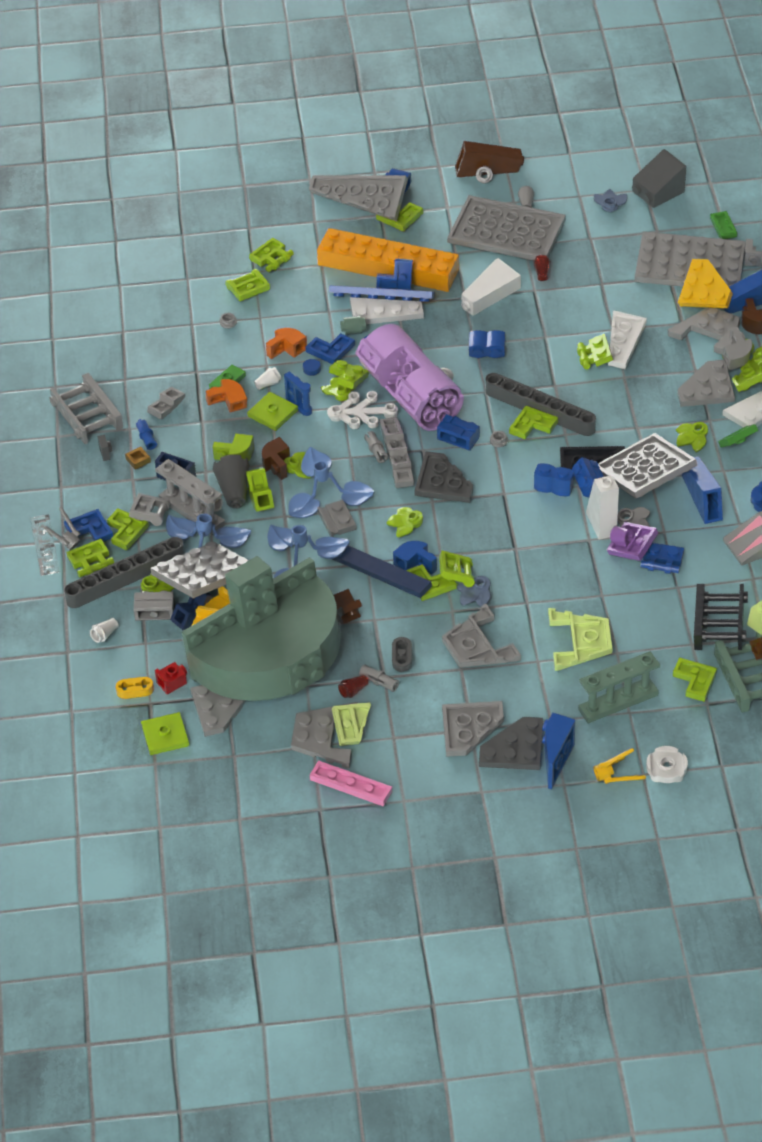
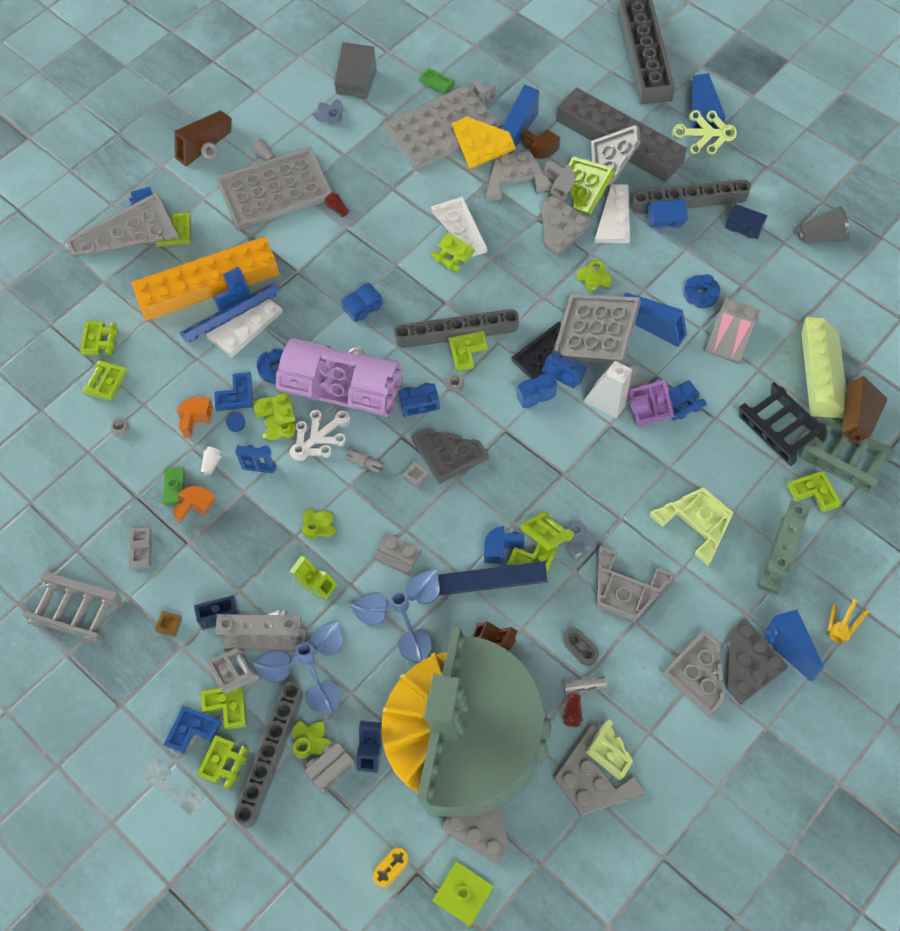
camera: 40 degrees left, 15 degrees up
(69, 539) = (186, 761): light grey plant -> none
(103, 630) = (307, 830): white cone -> none
(105, 447) = (128, 635): dark grey plate -> none
(146, 434) = (152, 593): blue axle -> none
(171, 677) = (415, 838): red brick -> none
(199, 569) = (347, 701): light grey plate -> none
(232, 479) = (280, 586): dark grey cone -> none
(241, 445) = (254, 552): lime brick -> none
(272, 411) = (242, 488): lime plate -> none
(273, 457) = (289, 534): reddish brown brick -> none
(318, 465) = (336, 513): medium blue plant -> none
(351, 783) = (666, 811): bright pink plate -> none
(353, 325) = (235, 358): sand green brick -> none
(395, 443) = (377, 447): light grey slope -> none
(405, 520) = (453, 516): lime plate -> none
(490, 287) = (315, 244): white slope -> none
(667, 774) = (867, 595): white plate -> none
(738, 436) = (629, 253): bright green plate -> none

